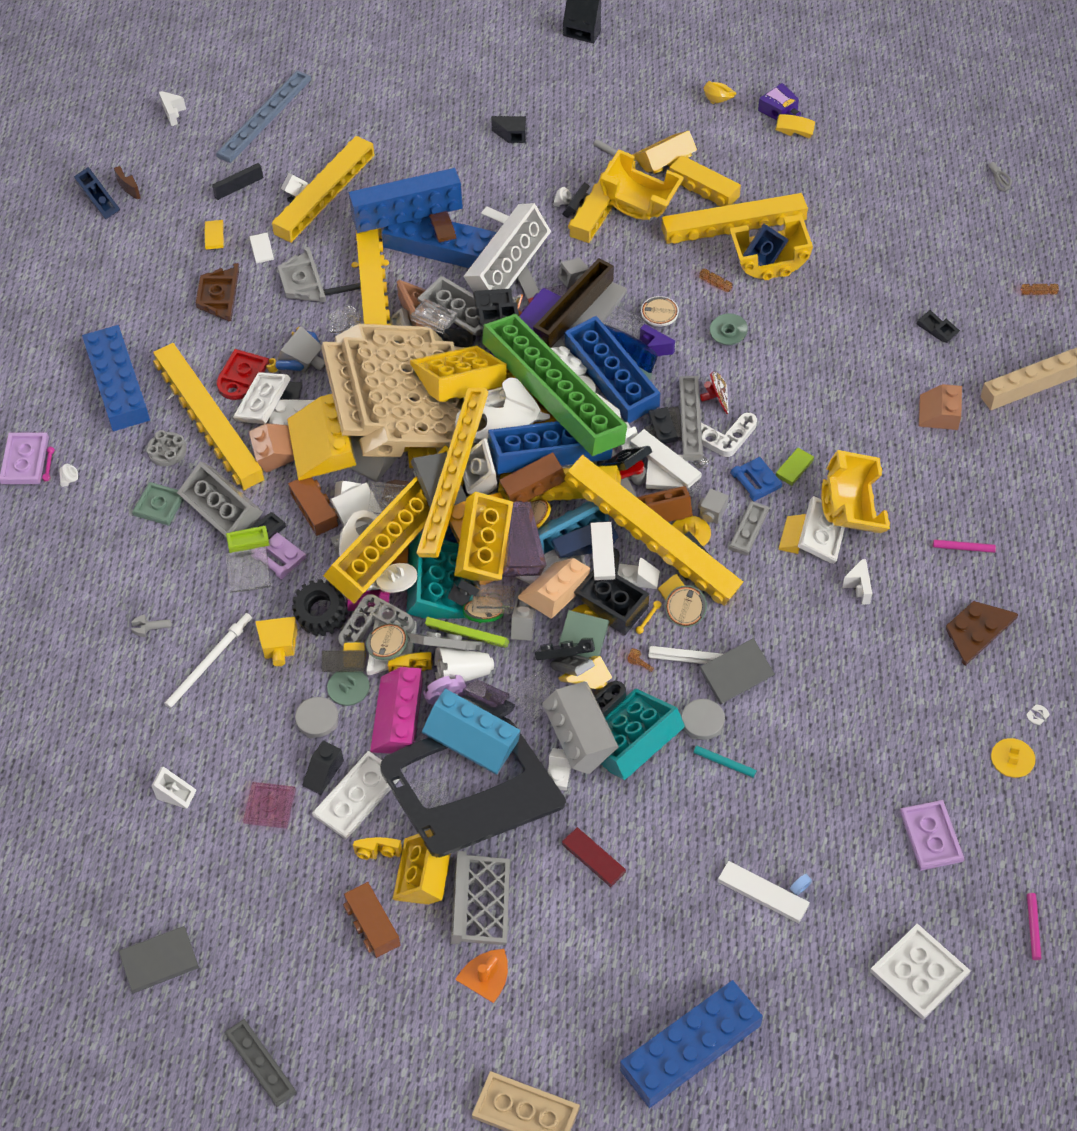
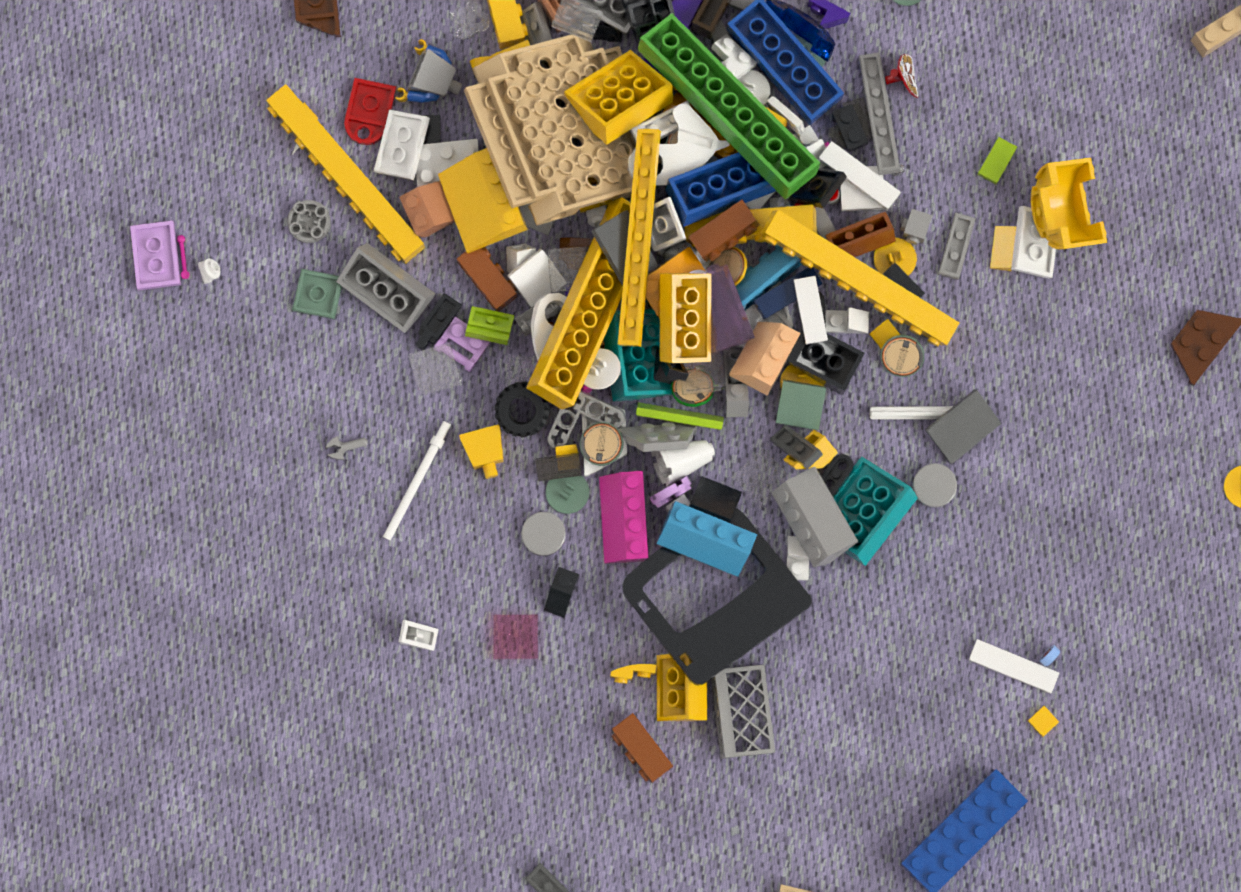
camera: 10 degrees left, 25 degrees up
(116, 378) = (230, 136): blue brick -> none
(158, 959) = (444, 814): dark grey tile -> none
(247, 539) = (427, 333): lime tile -> none
(306, 541) = (489, 325): none -> lime plate
(353, 797) = (598, 616): white tile -> none
(415, 660) = (621, 464): yellow slope -> none
(486, 693) = (712, 487): clear purple piece -> none
(486, 974) = (760, 785): orange shield -> none
(565, 649) = (784, 427): black hinge -> none
(594, 857) = (845, 651): dark red tile -> none
(634, 658) = (855, 421): clear orange hand -> none
(656, 605) = (870, 354): yellow hinge -> none
(724, 440) = (915, 136): white beam -> none
(725, 761) = (961, 529): teal bar -> none
(760, 474) = (962, 177): blue plate -> none
(788, 948) = (1043, 721): none -> yellow tile
(859, 579) = (1080, 297): white slope -> none
(920, 971) = (1169, 730): white plate -> none
(931, 835) = (1170, 583): lavender tile -> none
(941, 407) = (1149, 65): nougat slope -> none
(964, 546) = (1184, 240): dark pink bar -> none

